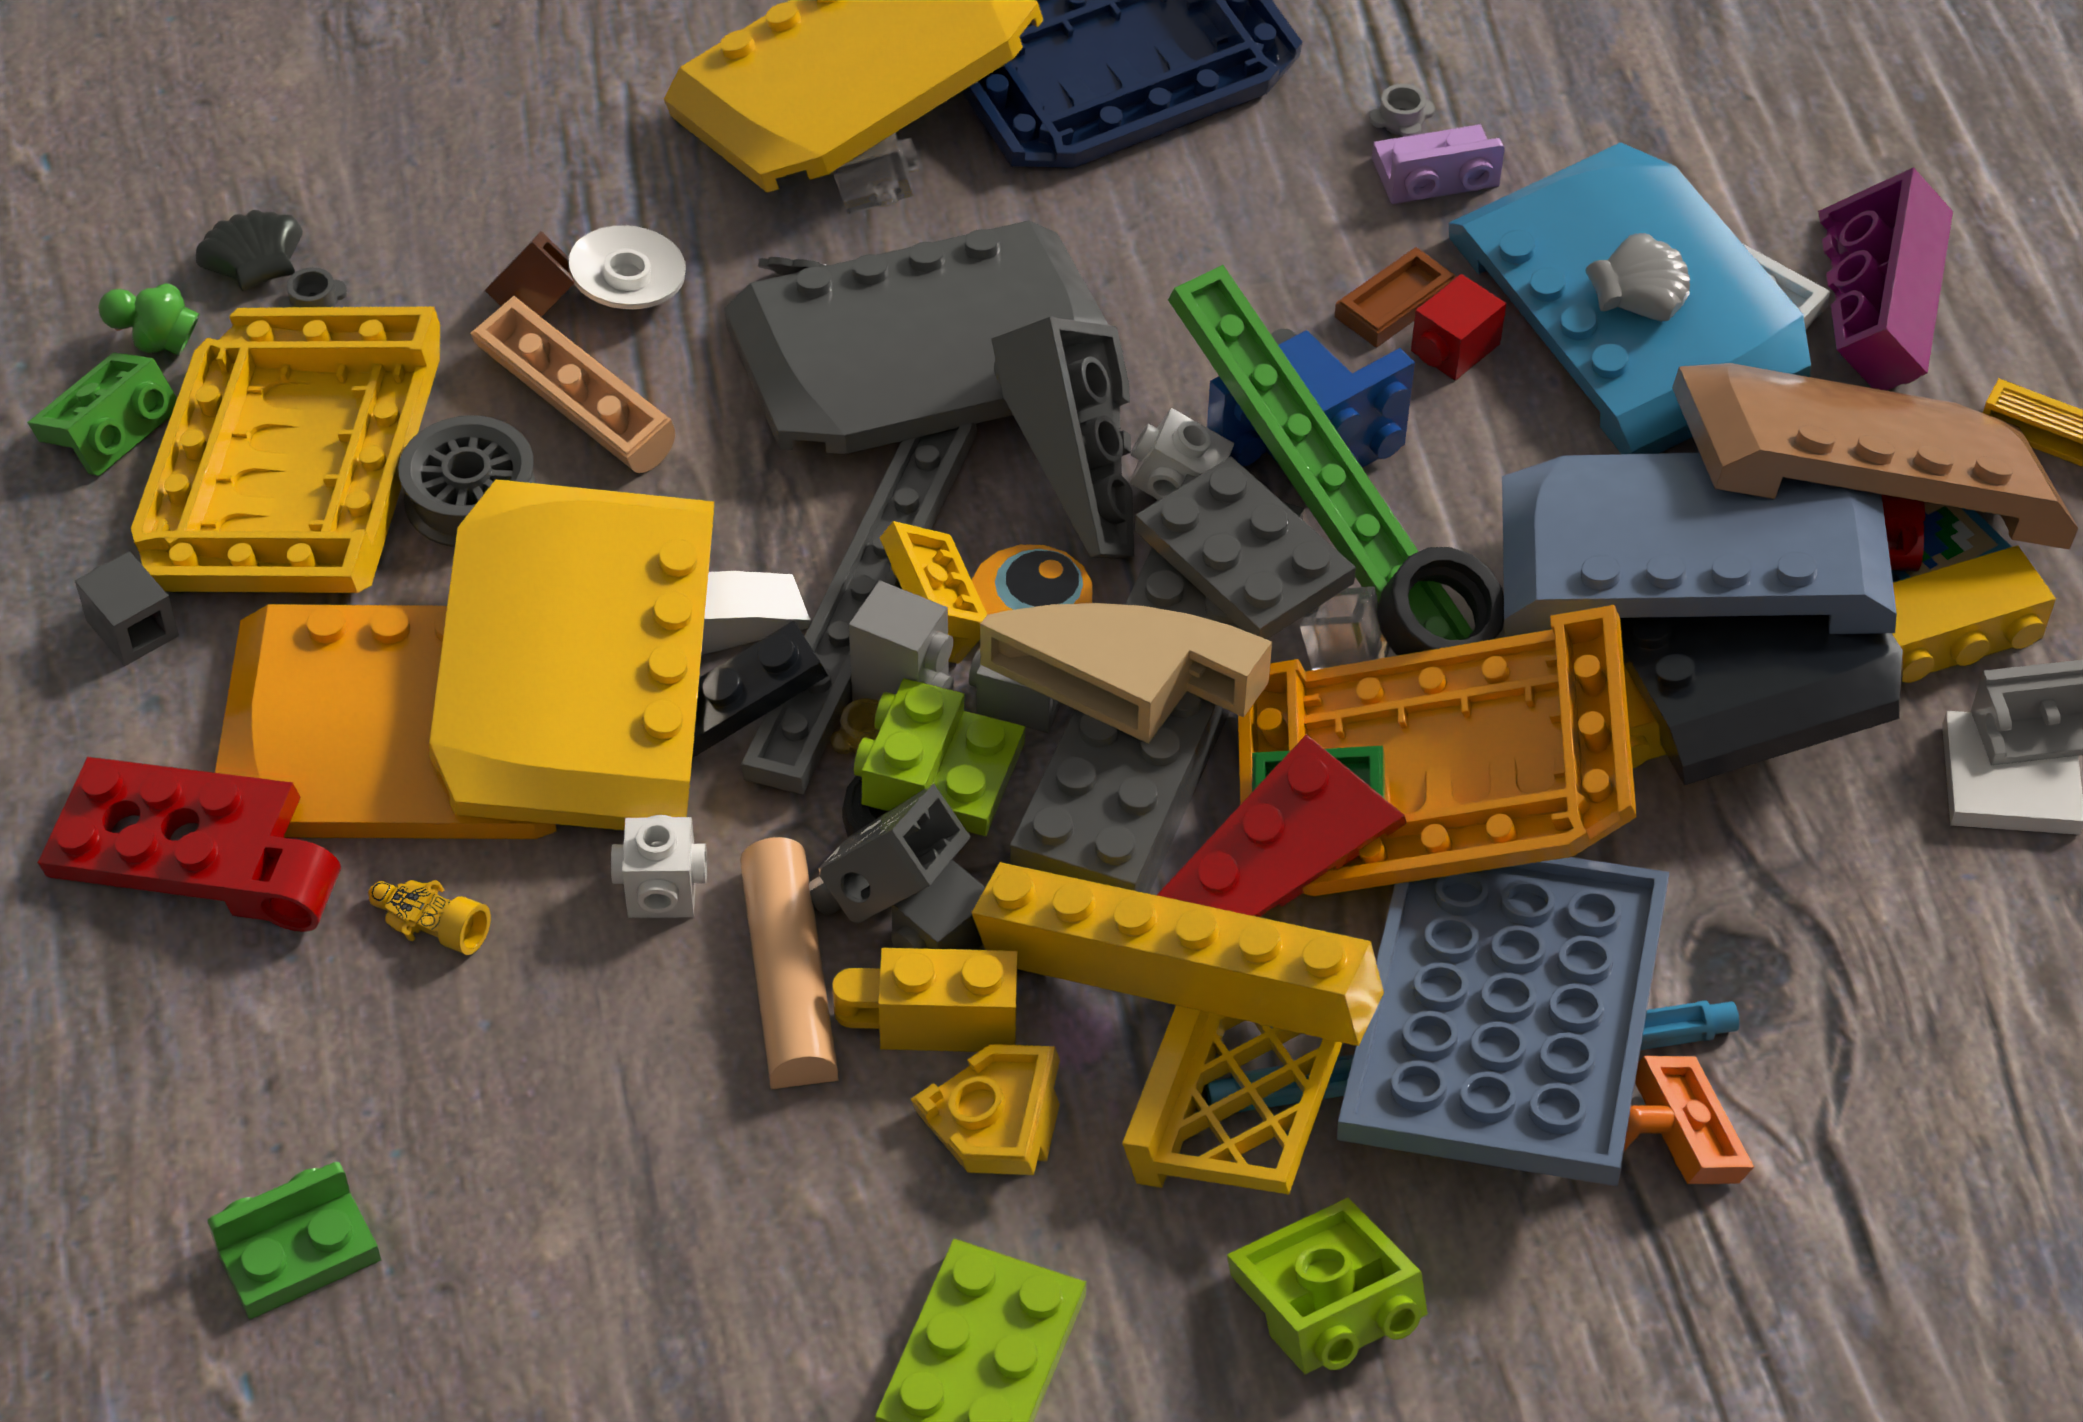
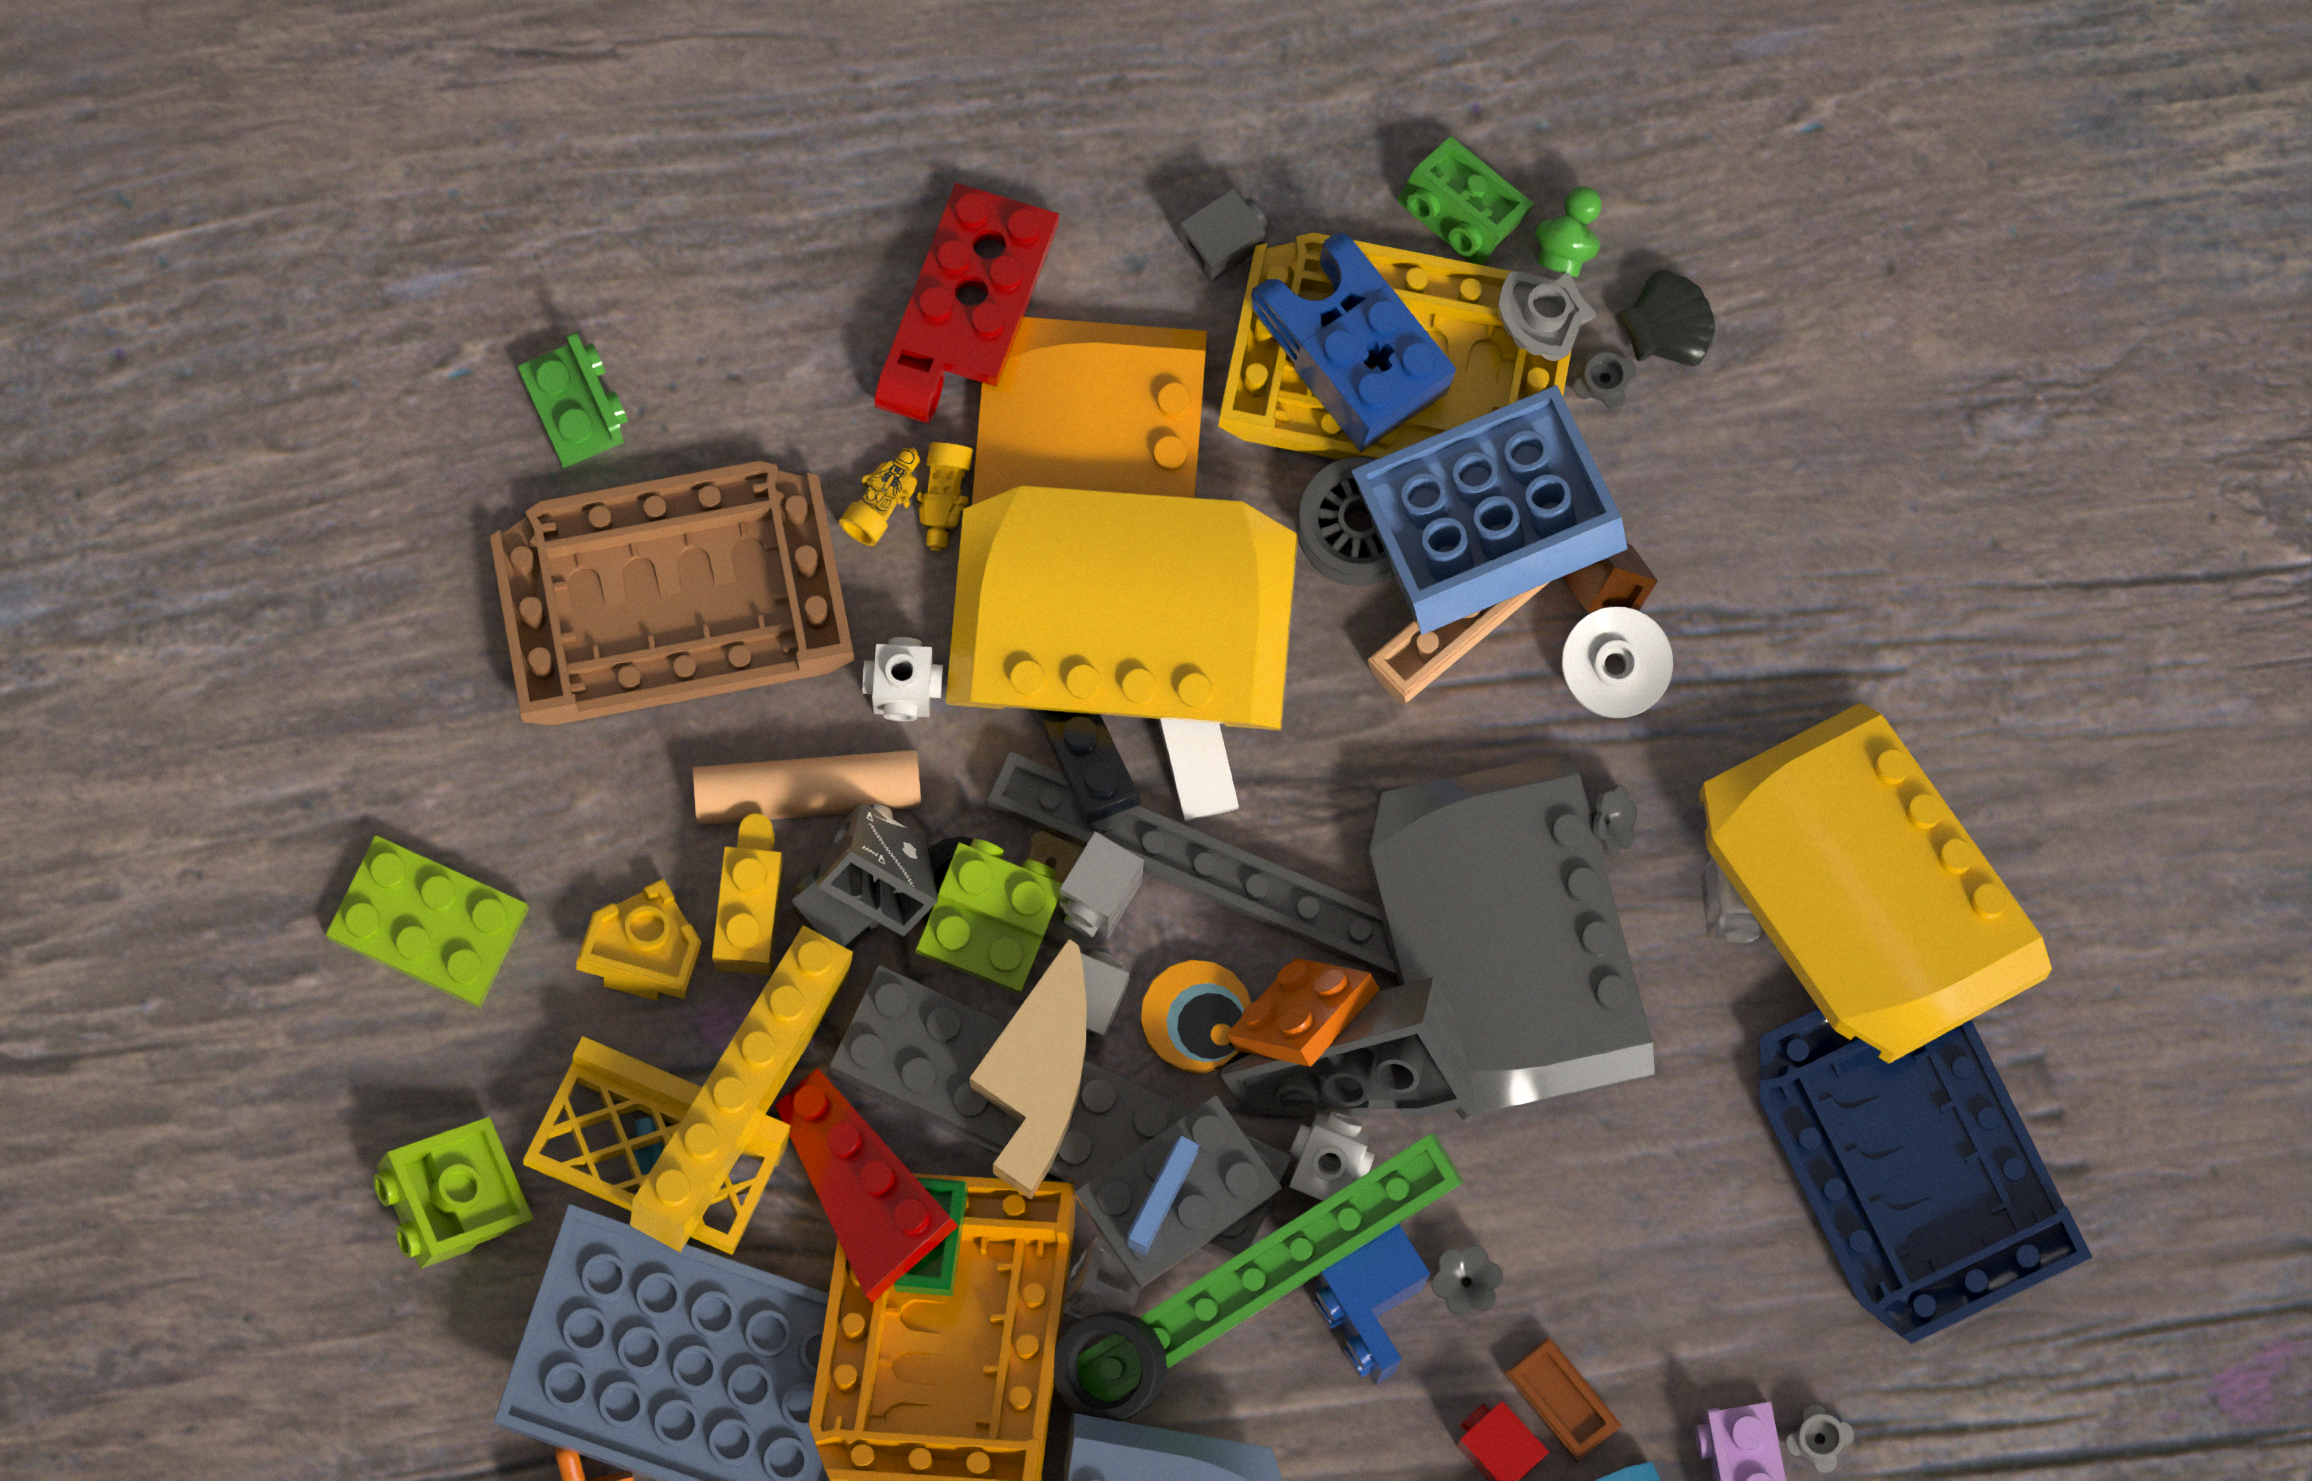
camera: 90 degrees right, 25 degrees up
(243, 322) = (1543, 313): none -> light grey animal
(269, 460) = (1351, 330): none -> blue brick
(441, 856) = (943, 502): none -> yellow piece
(466, 335) = (1490, 509): none -> medium blue slope
(547, 1114) = (670, 592): none -> medium nougat slope
(932, 568) = (1186, 923): yellow bracket -> none
(1028, 475) = (1302, 1011): none -> orange plate
(1263, 524) = (1162, 1195): none -> medium blue tile

